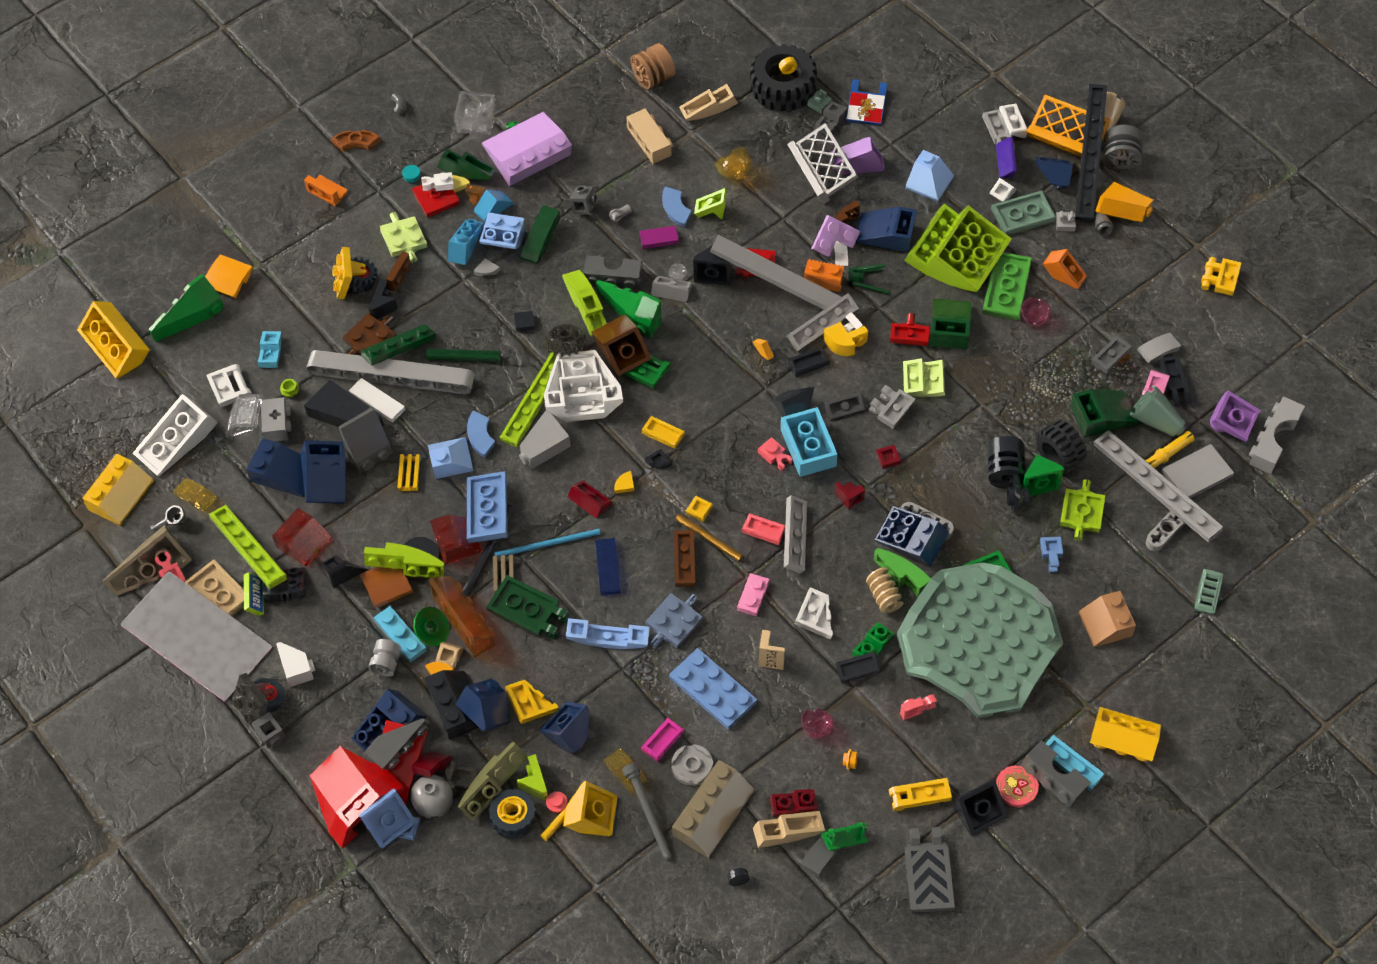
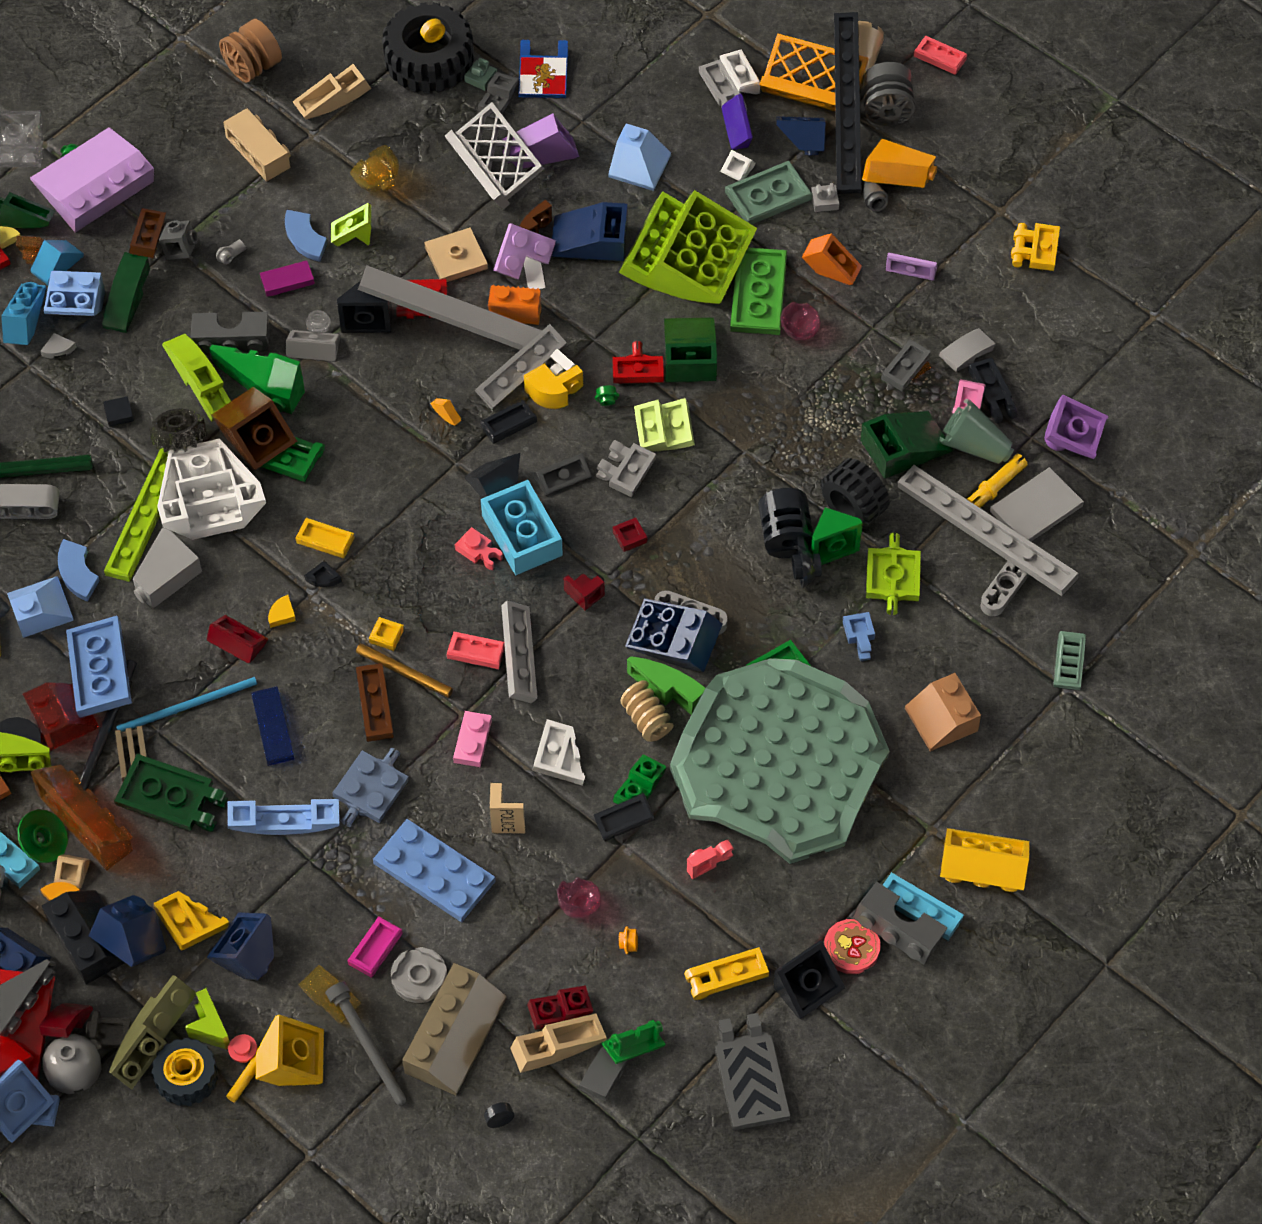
camera: 10 degrees left, 0 degrees up
(561, 192) = (147, 233): none -> reddish brown plate
(785, 233) = (456, 255): none -> tan plate
(856, 275) = (558, 298): dark green plant -> none
(883, 351) = (606, 395): none -> green plate
(1124, 280) = (911, 266): none -> lavender slope
(1166, 123) = (940, 55): none -> coral plate
(1268, 451) = (1124, 468): light grey arch -> none

